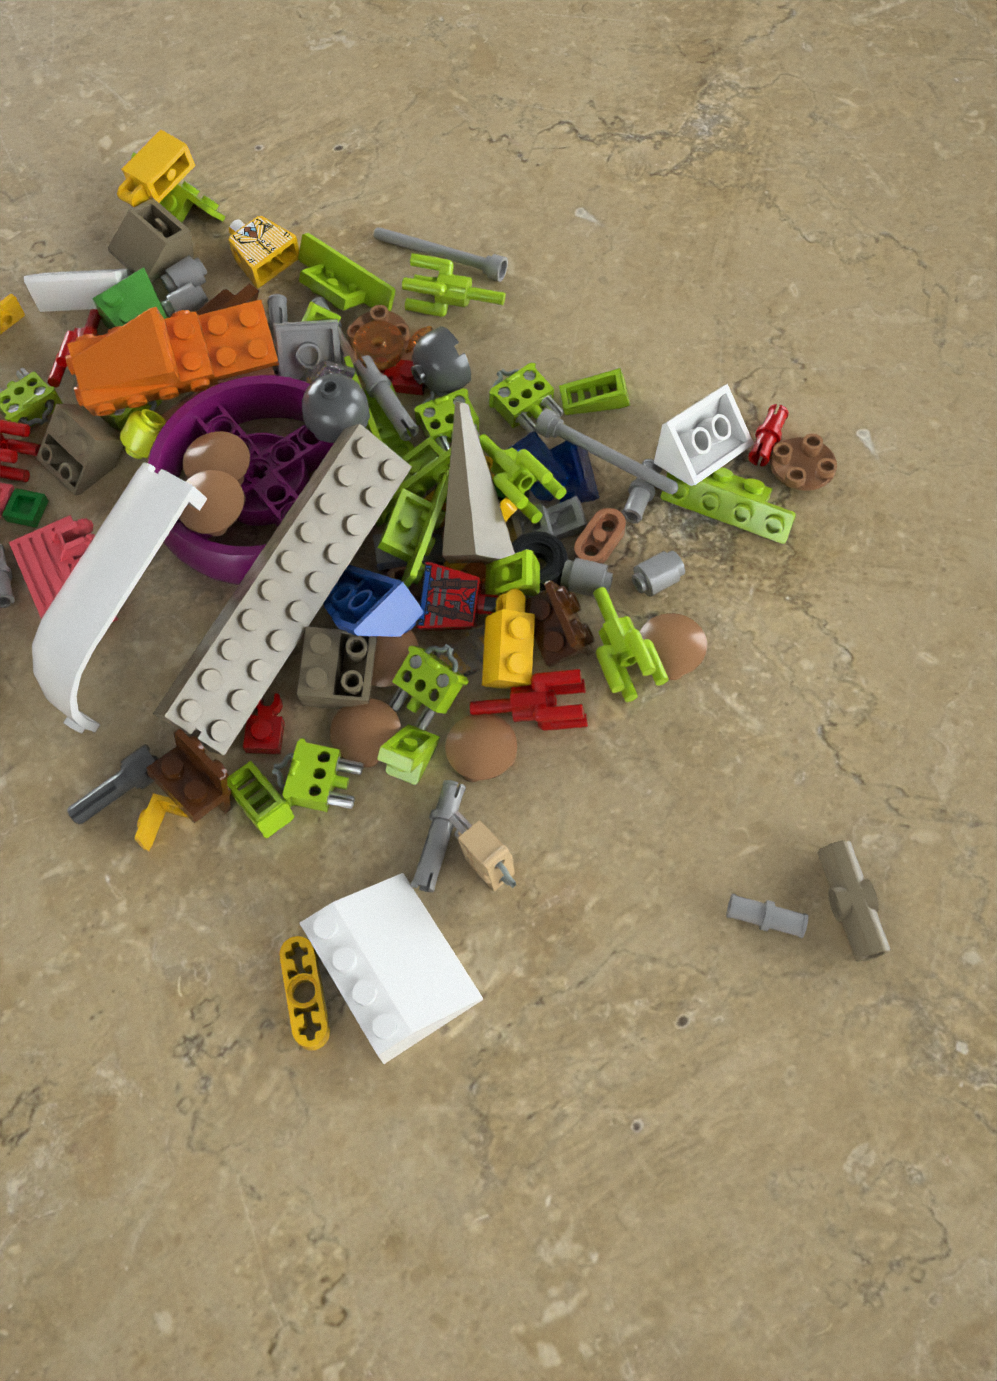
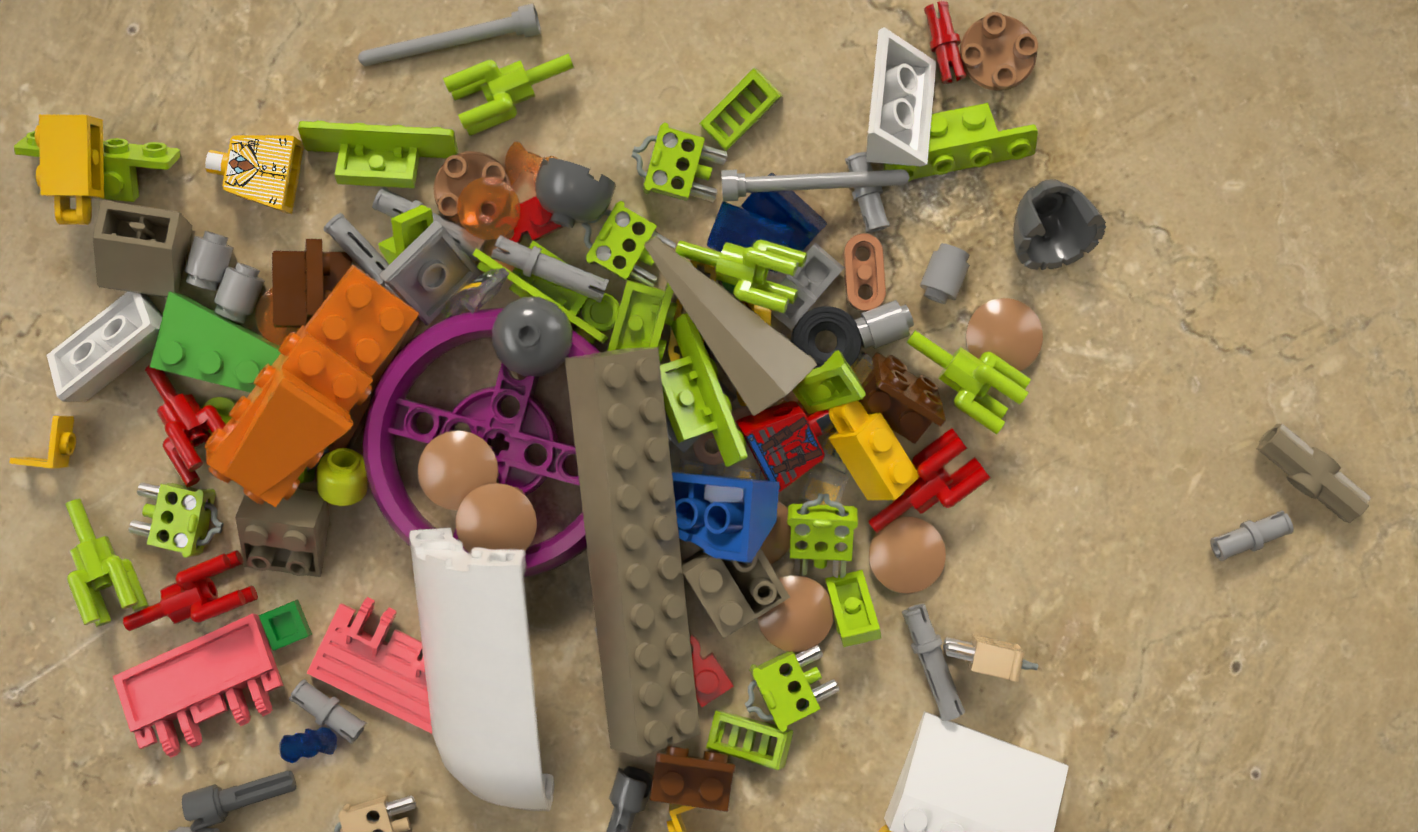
camera: 40 degrees left, 25 degrees up
(761, 587) = (1055, 225): none -> dark grey hair

